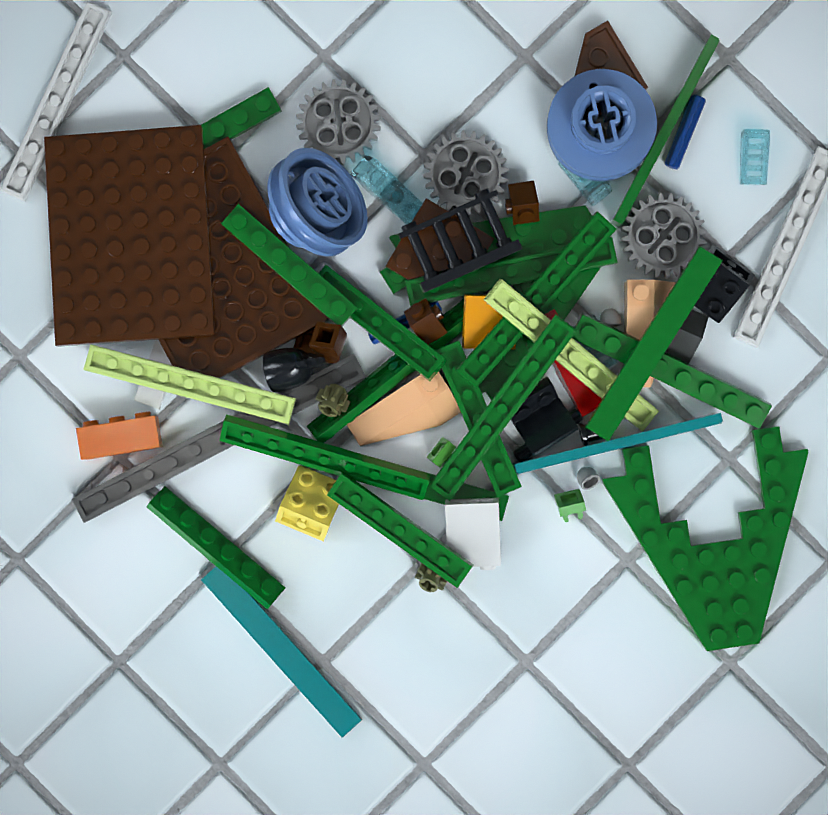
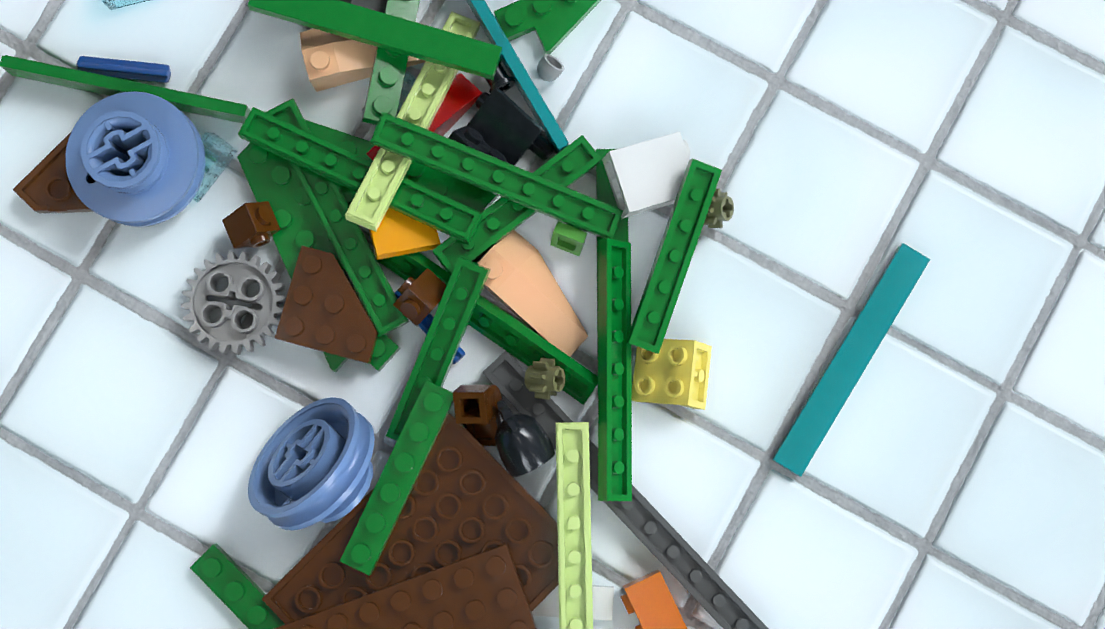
camera: 105 degrees left, 5 degrees down
(215, 547) = (757, 470): green plate -> none
(361, 119) = (202, 442): light grey gear -> none
(386, 188) = (276, 389): clear light blue slope -> none
(480, 256) = (325, 252): black fence -> none
(570, 503) = (585, 78): bright green tile -> none
(611, 317) = (358, 92): light grey hinge -> none
(646, 221) = (262, 35): light grey gear -> none

